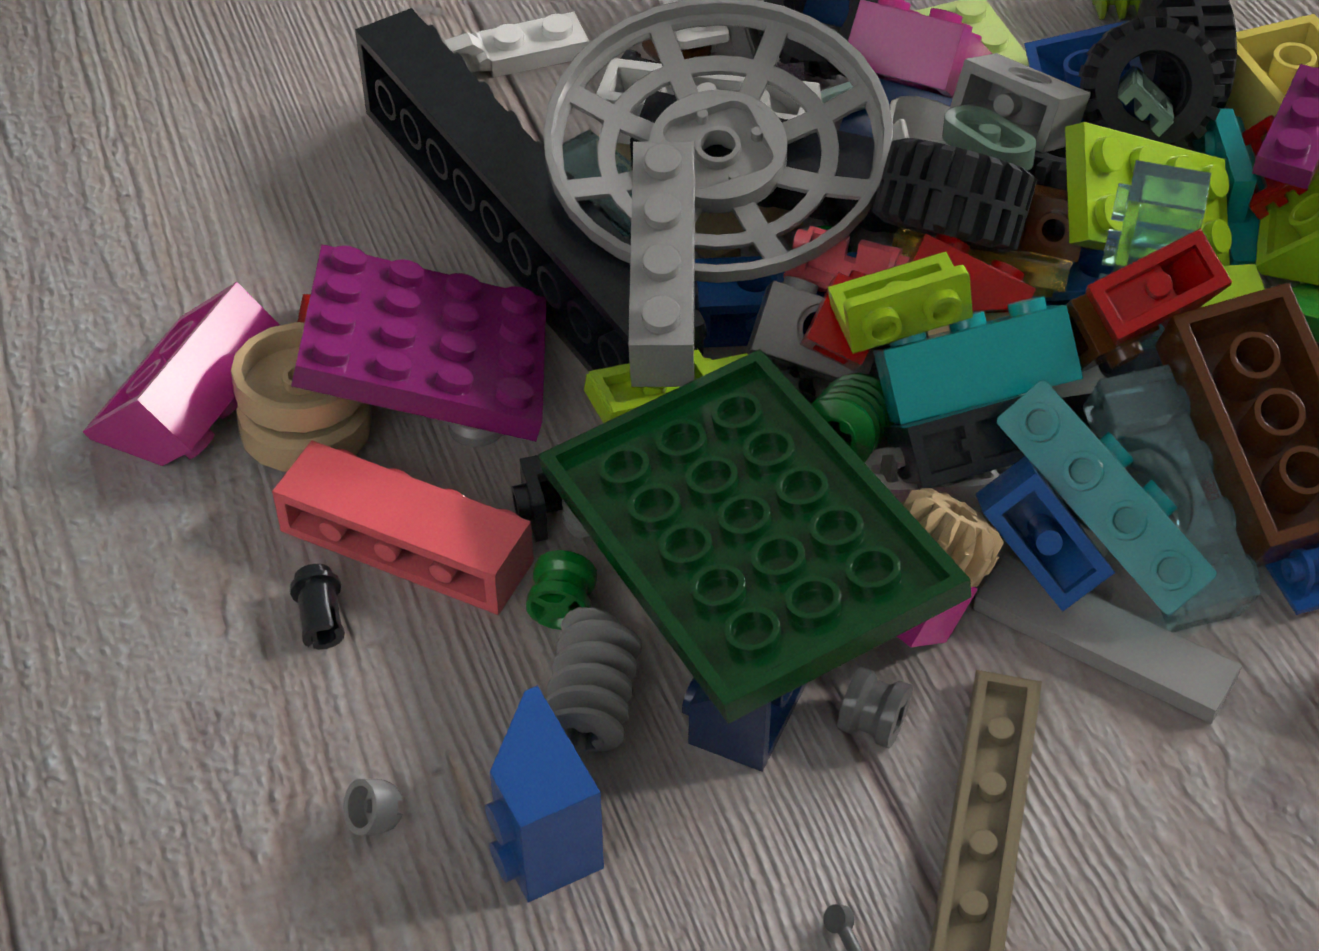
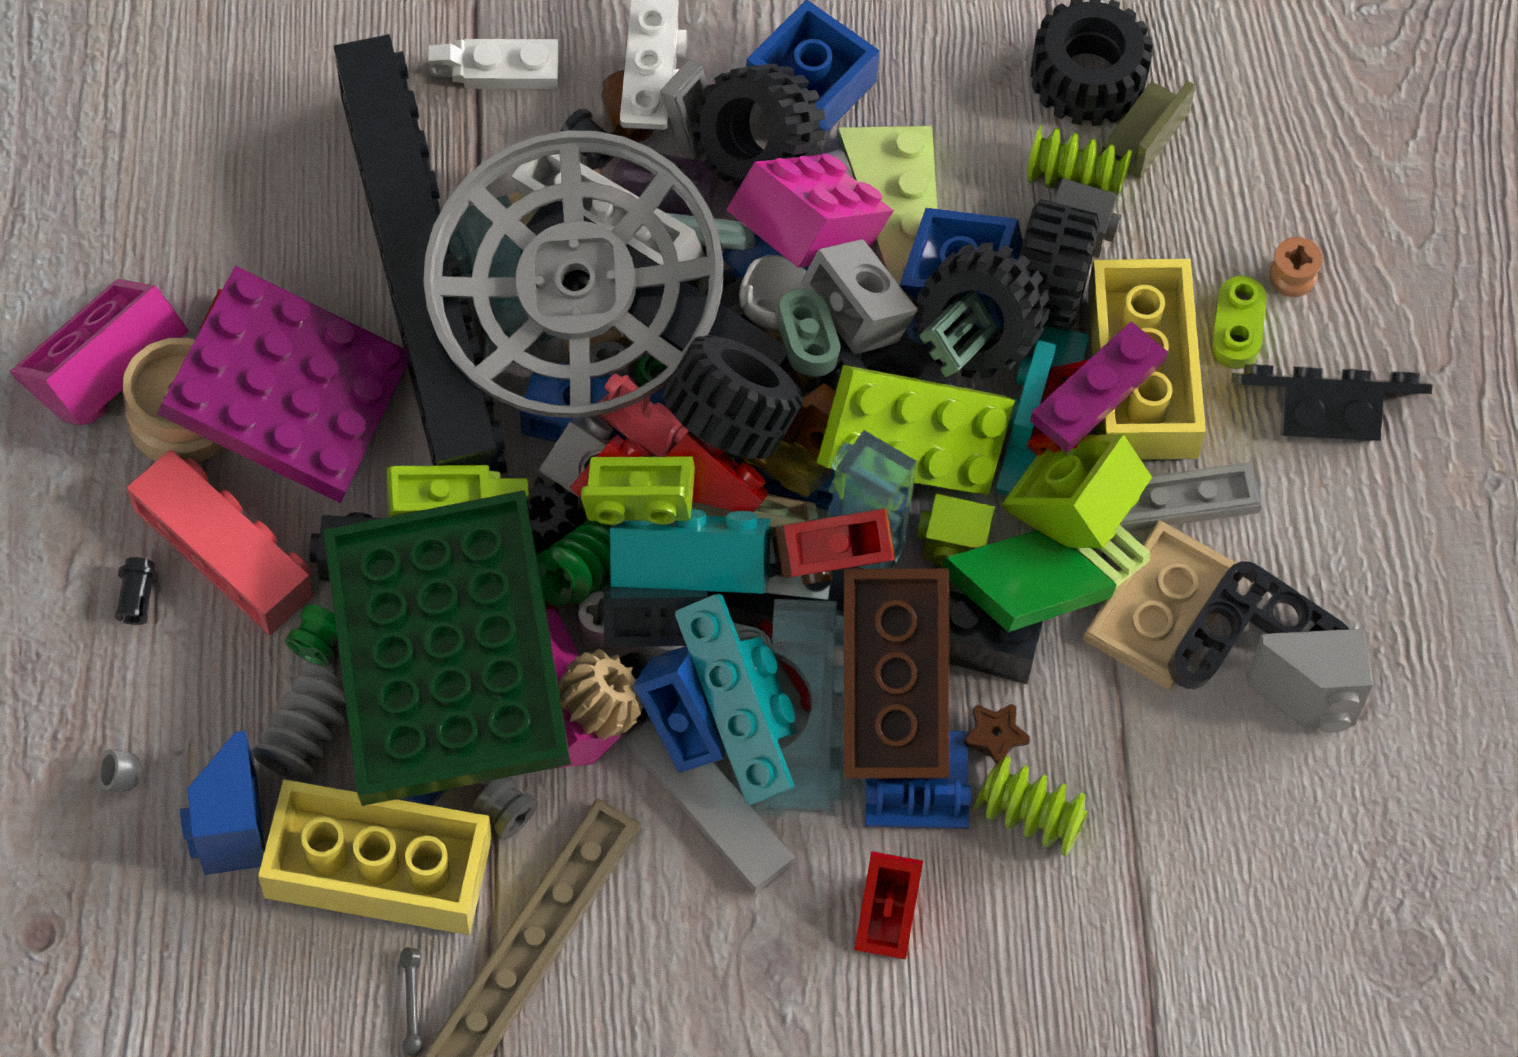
camera: 15 degrees right, 15 degrees up
(662, 264) = (471, 395): light grey brick -> none
(751, 804) = (377, 858): none -> light yellow brick

